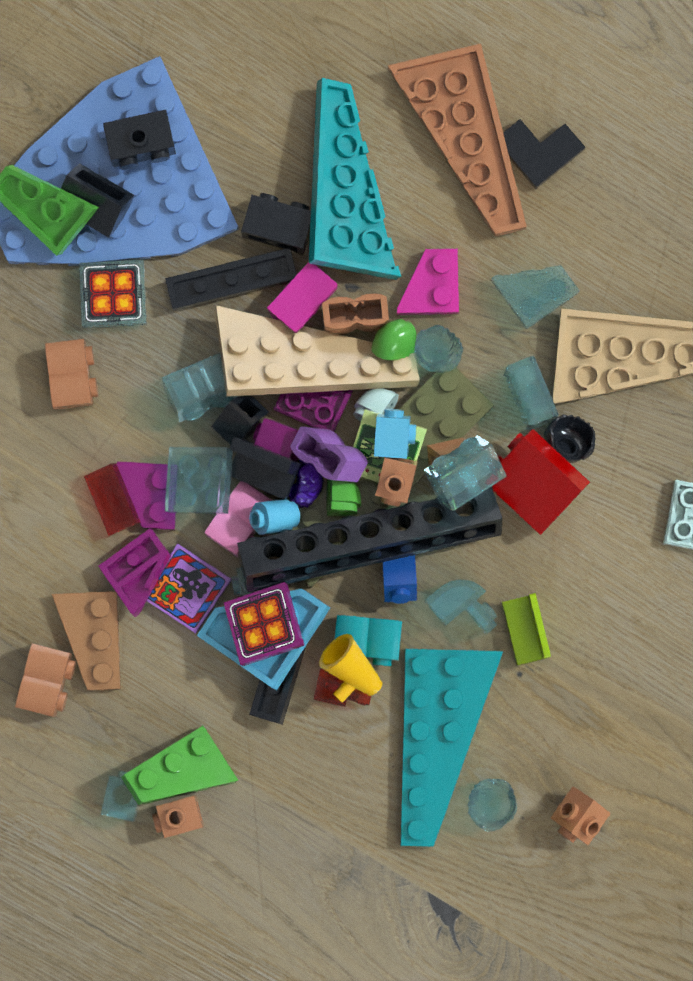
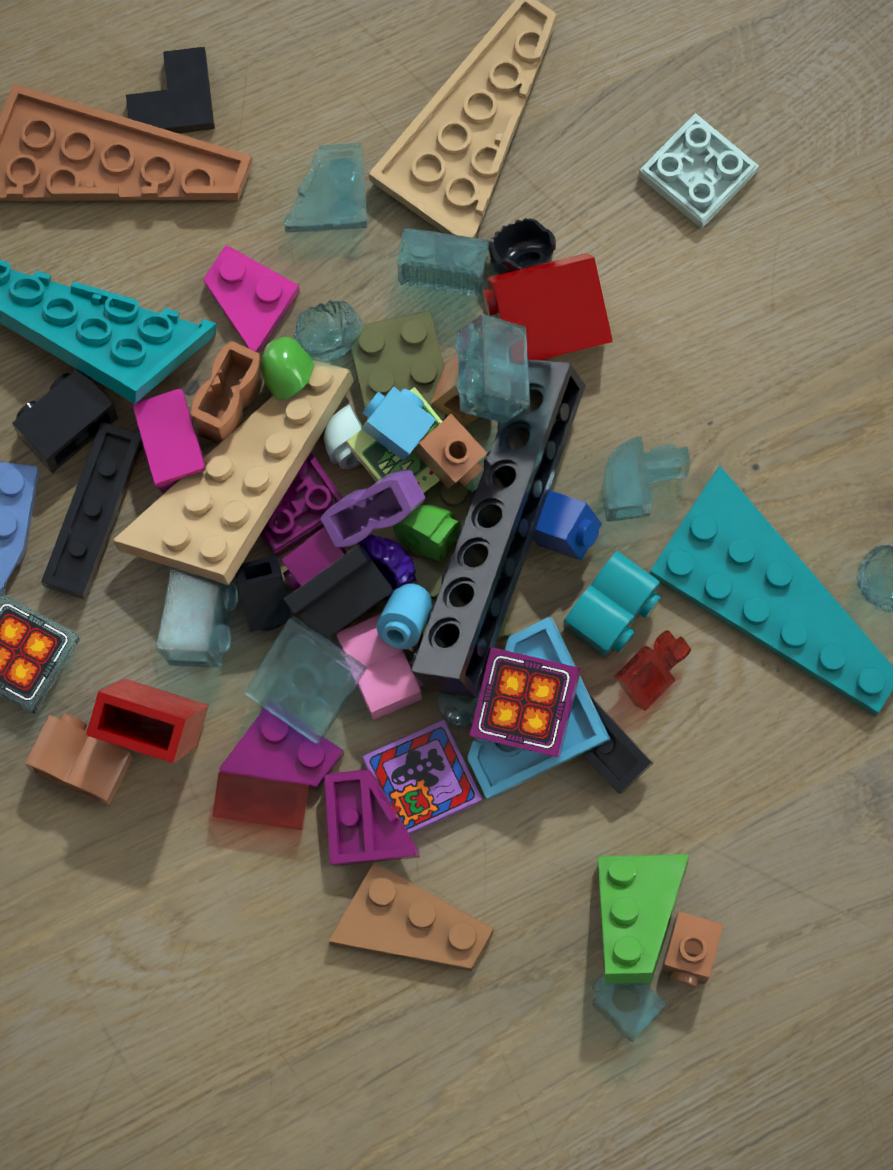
camera: 60 degrees left, 10 degrees down
(45, 680) = (427, 1011): nougat brick -> none
(113, 401) = (147, 720): none -> red brick
(348, 663) = (632, 633): yellow piece -> none
(526, 629) = (710, 423): lime panel -> none

